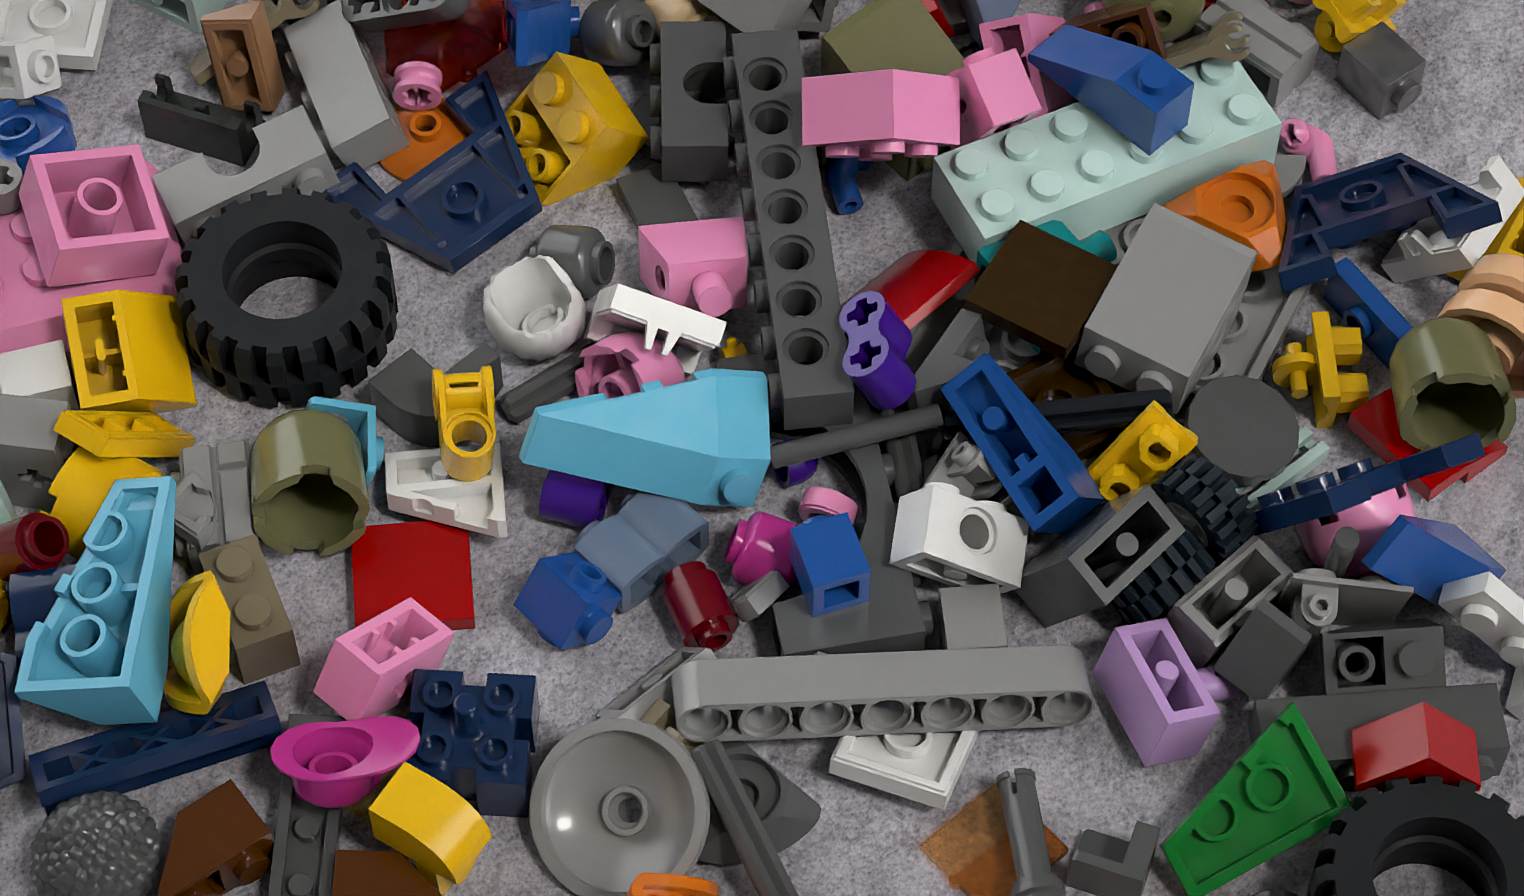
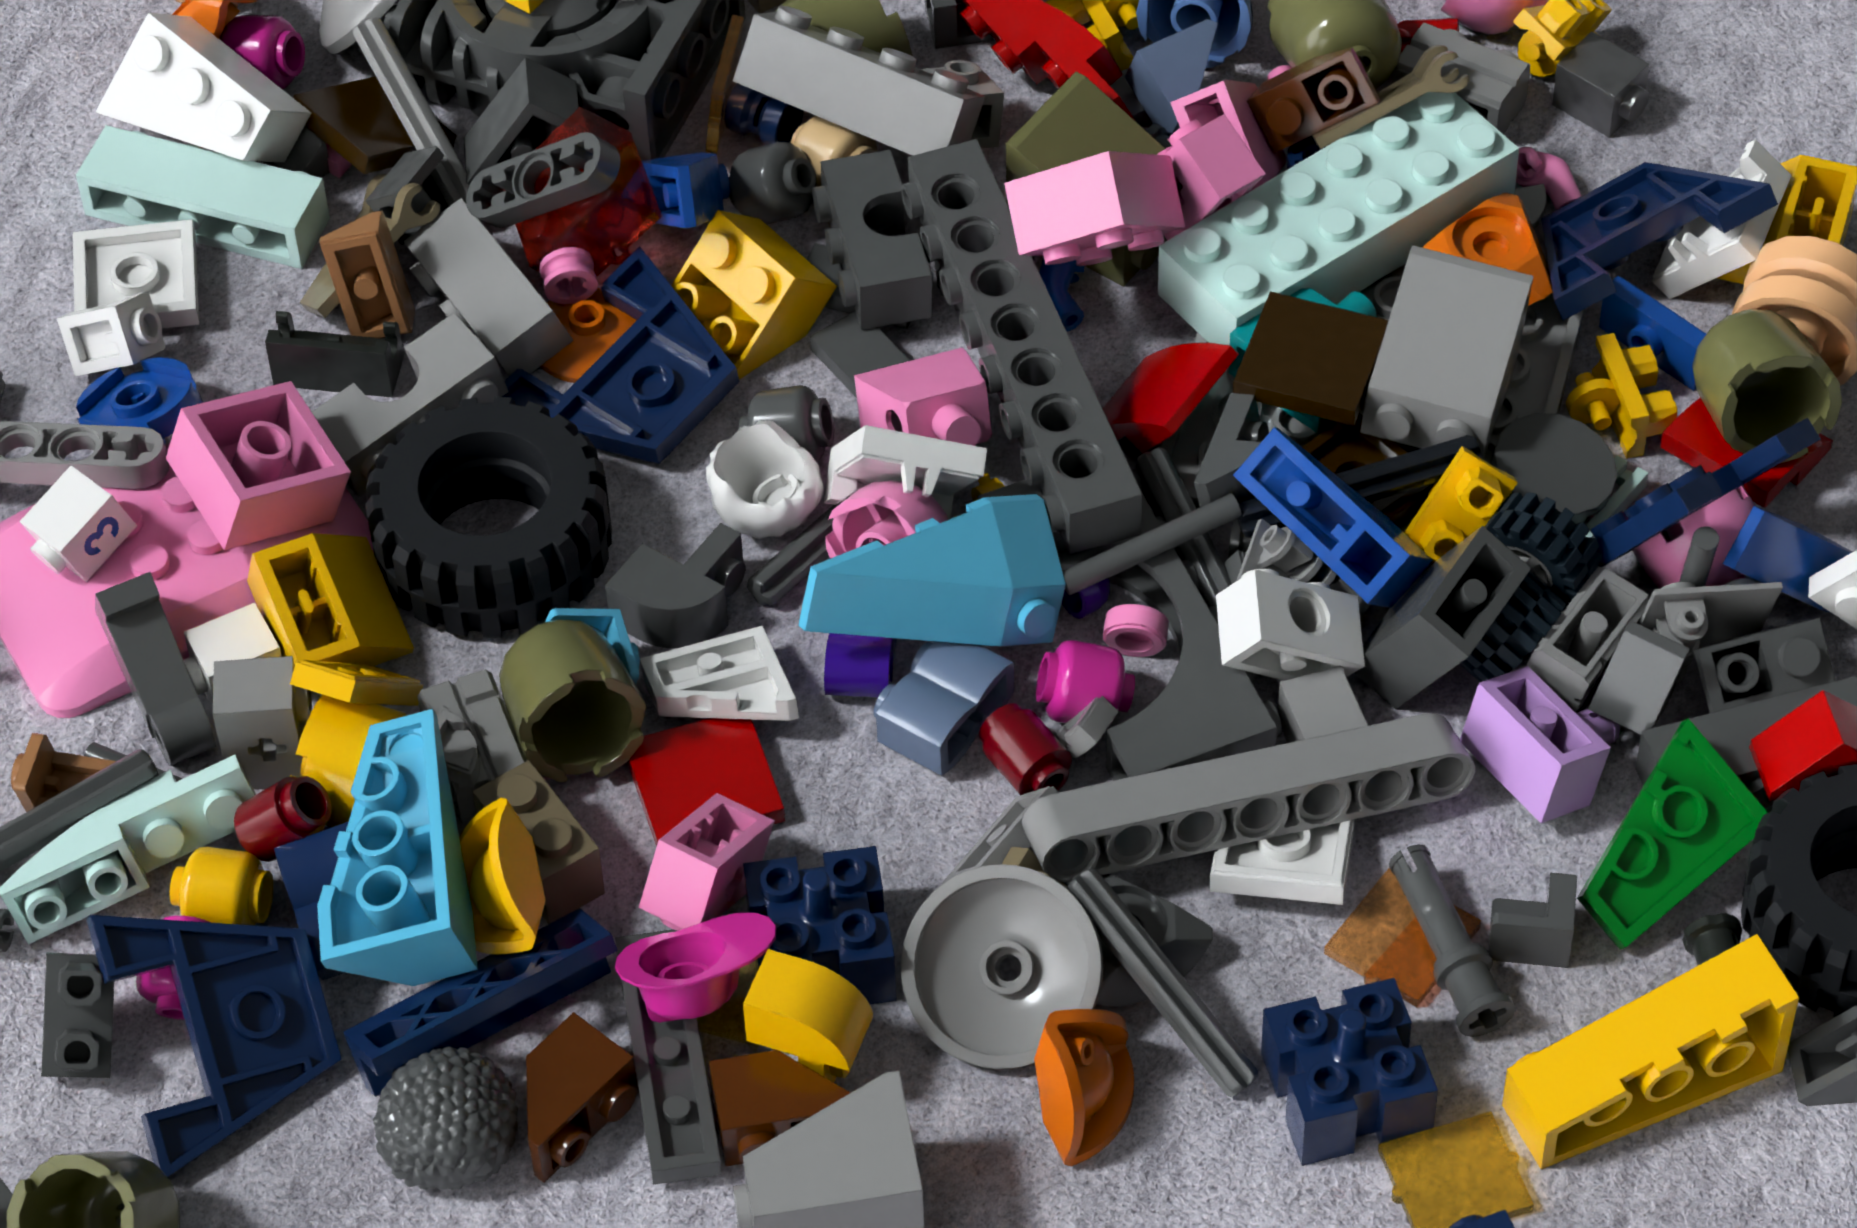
camera: 10 degrees left, 5 degrees down
(465, 412) = (725, 593): yellow piece -> none
(568, 601) = (885, 769): blue brick -> none
(829, 563) = (1160, 674): blue brick -> none
(877, 350) = (1155, 448): dark purple axle -> none
(1119, 83) = (1341, 133): blue slope -> none

